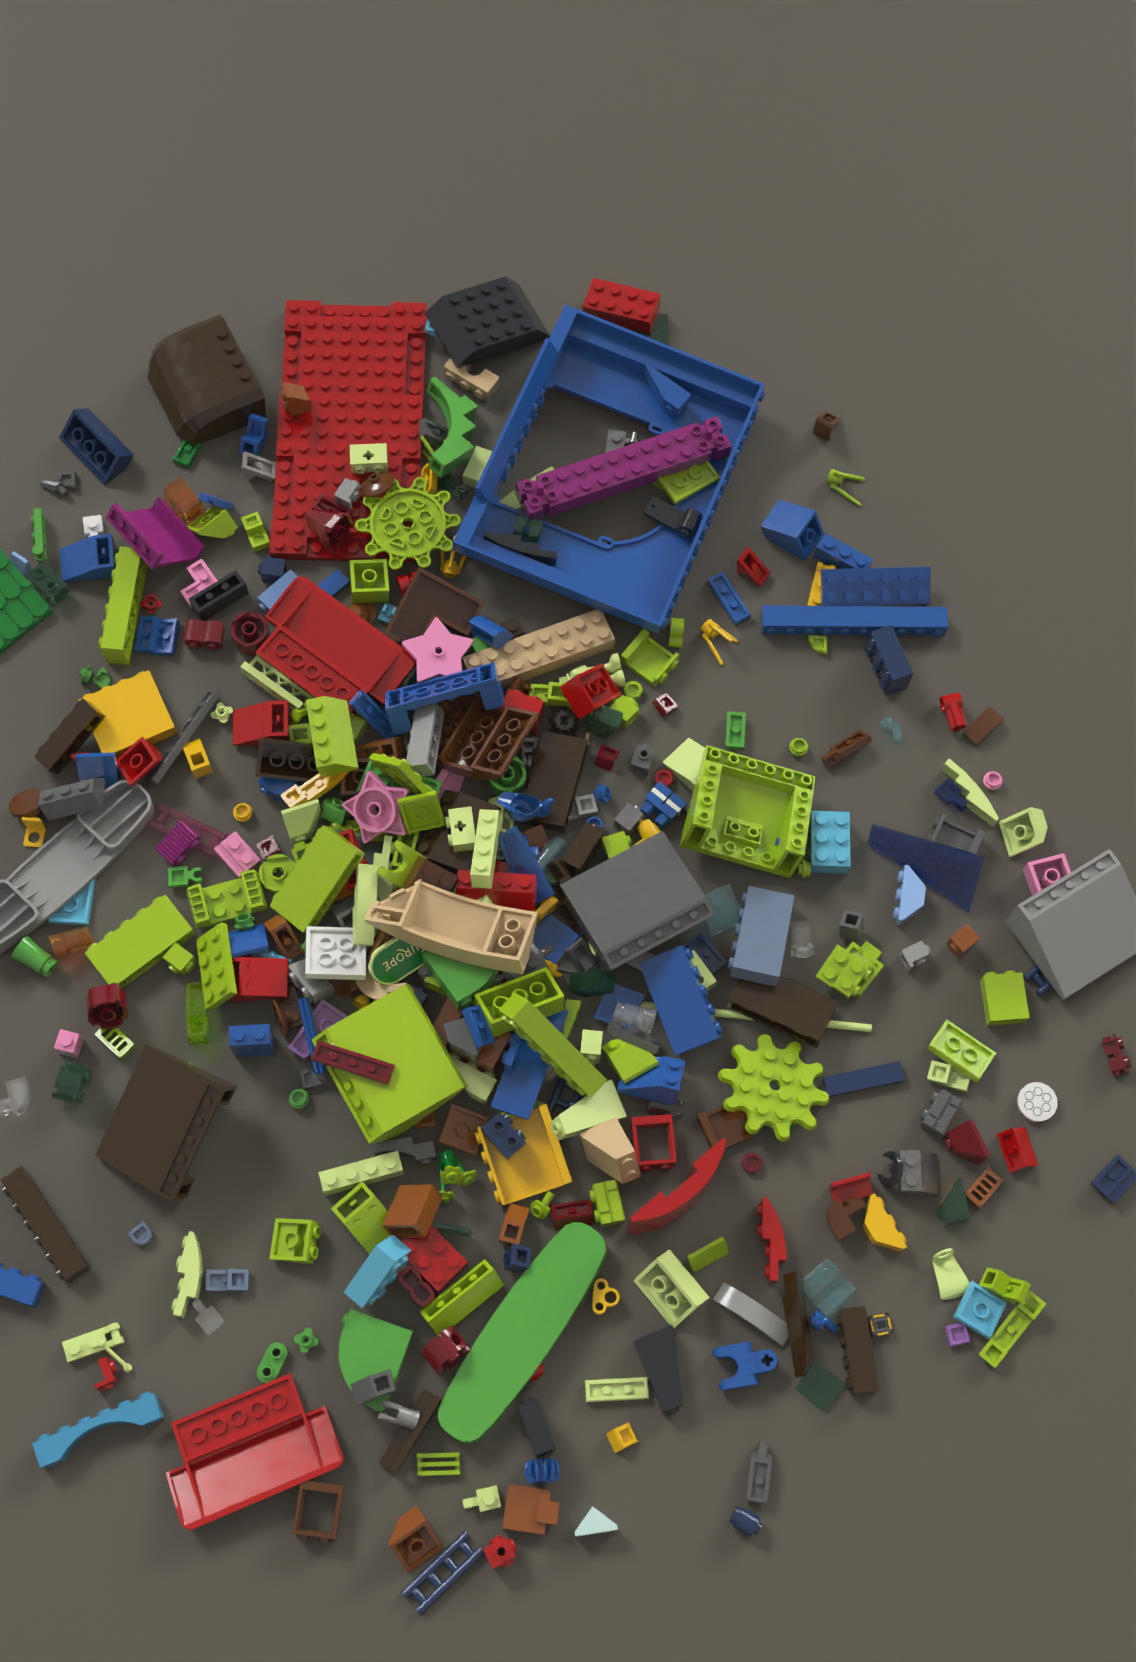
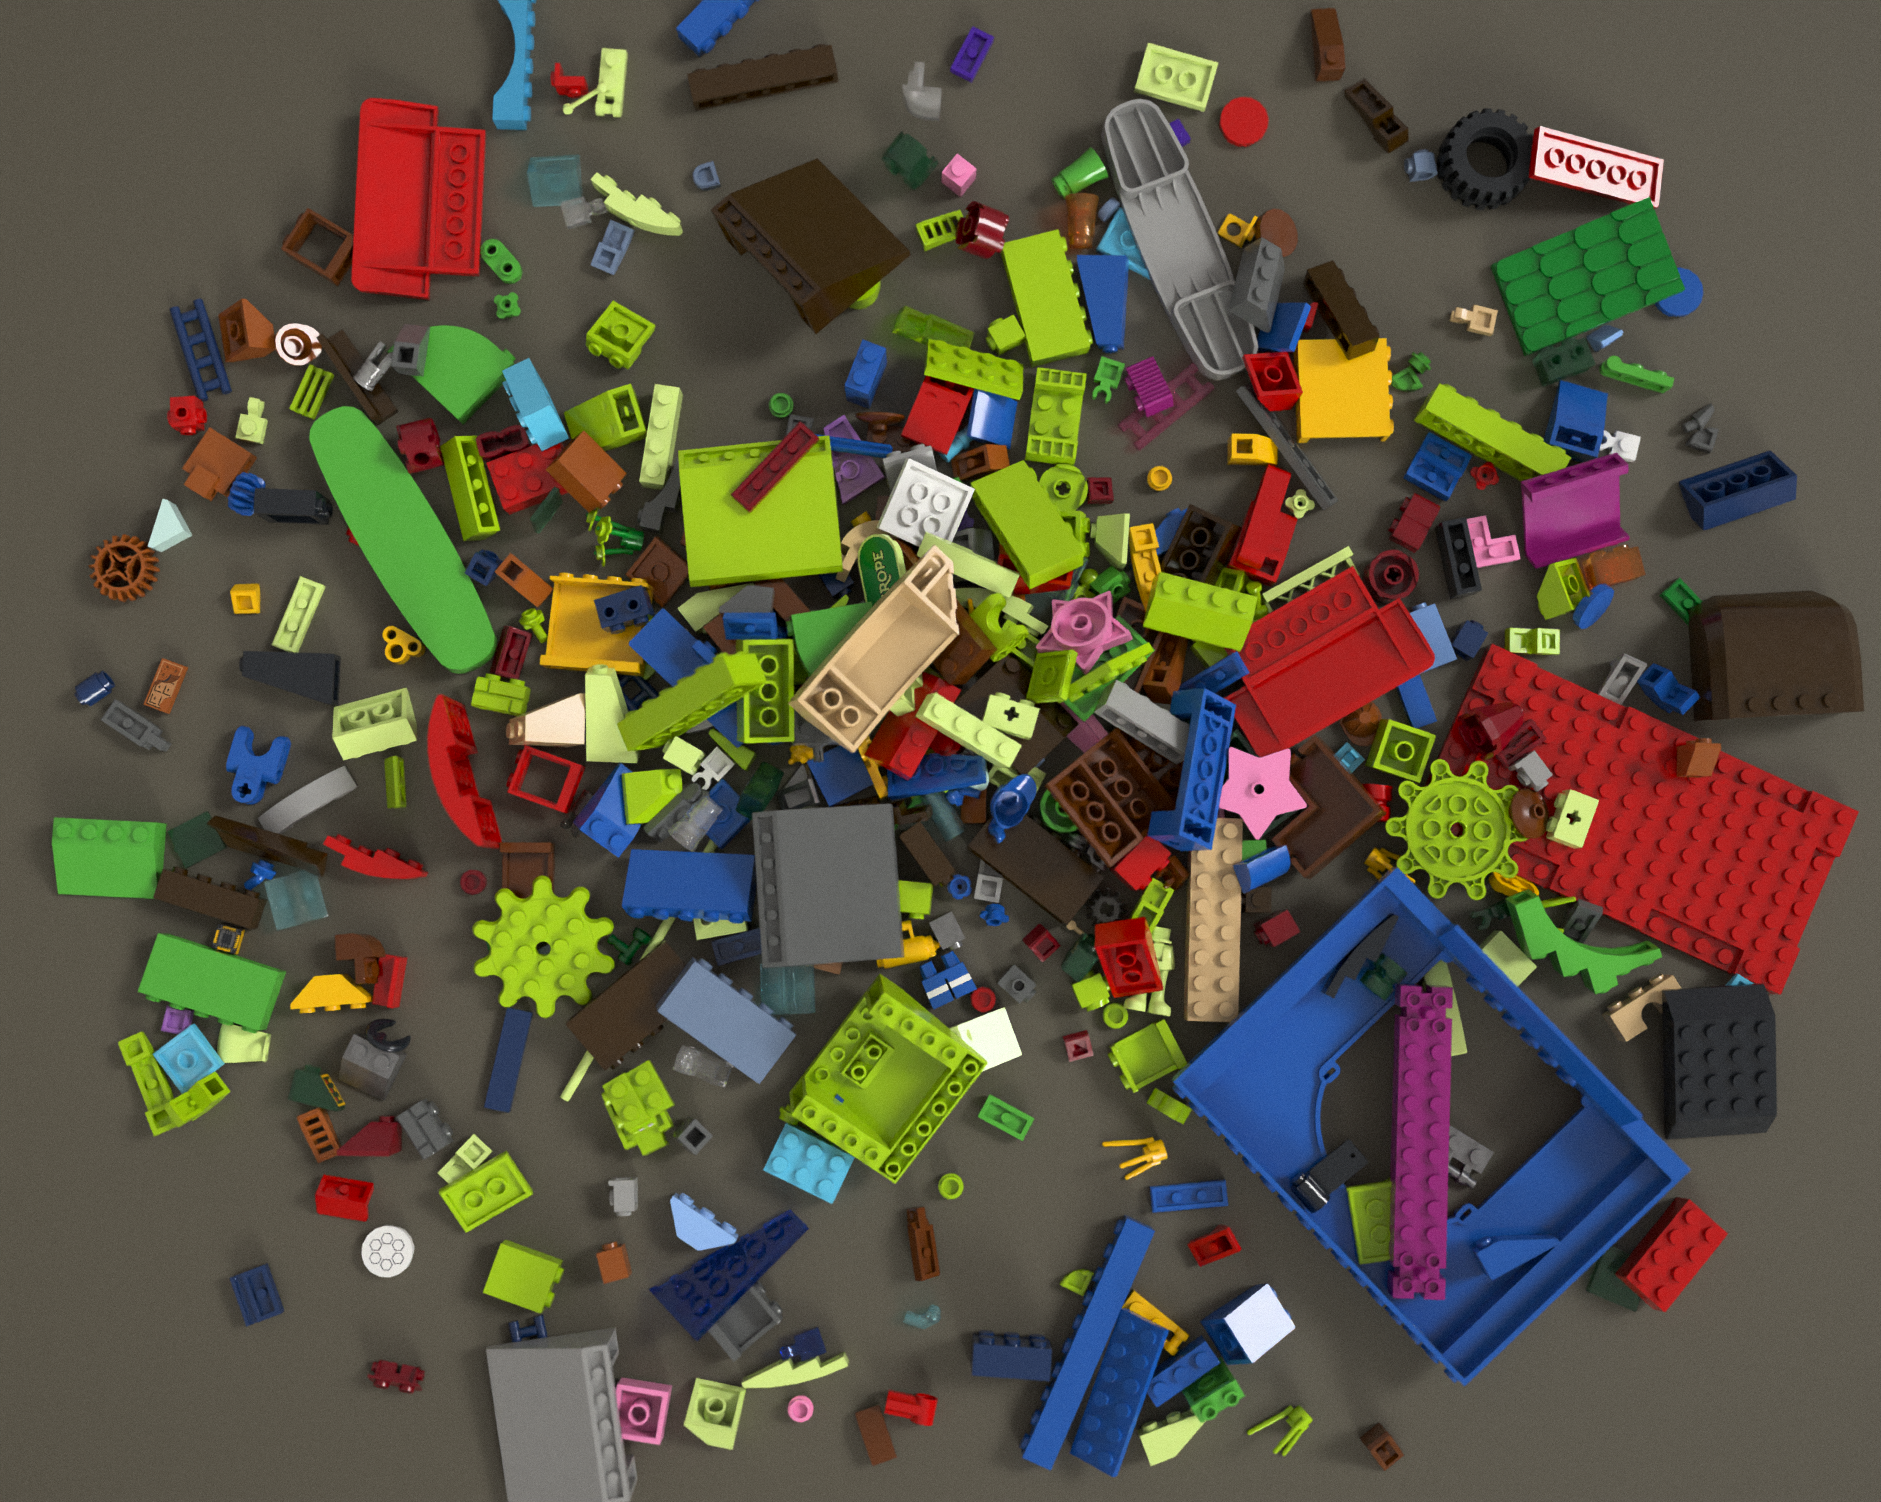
camera: 110 degrees right, 15 degrees up
(39, 648) = (1478, 319): none -> tan plate
(53, 927) = (1108, 209): none -> sand blue tile
(120, 901) = (1106, 296): none -> blue slope
(189, 1350) = (554, 179): none -> clear light blue slope
(236, 854) = (1107, 450): bright pink plate -> none
(243, 727) = (1263, 517): none -> red beam
(244, 921) = (1019, 425): bright green plate -> none
(406, 1489) = (297, 344): none -> piece
(527, 609) = (1275, 928): none -> dark red brick
(587, 1023) = (716, 765): none -> white plate
(651, 1529) = (105, 577): none -> dark orange gear
(717, 1467) = (165, 686): none -> tile
(748, 1029) = (627, 952): none -> dark green piece
(846, 528) = (1213, 1392): none -> bright green plate
(865, 1445) = (108, 857): none -> bright green slope
(884, 546) = (1169, 1436): none -> yellowish green slope
(917, 1319) = (211, 982): none -> bright green brick

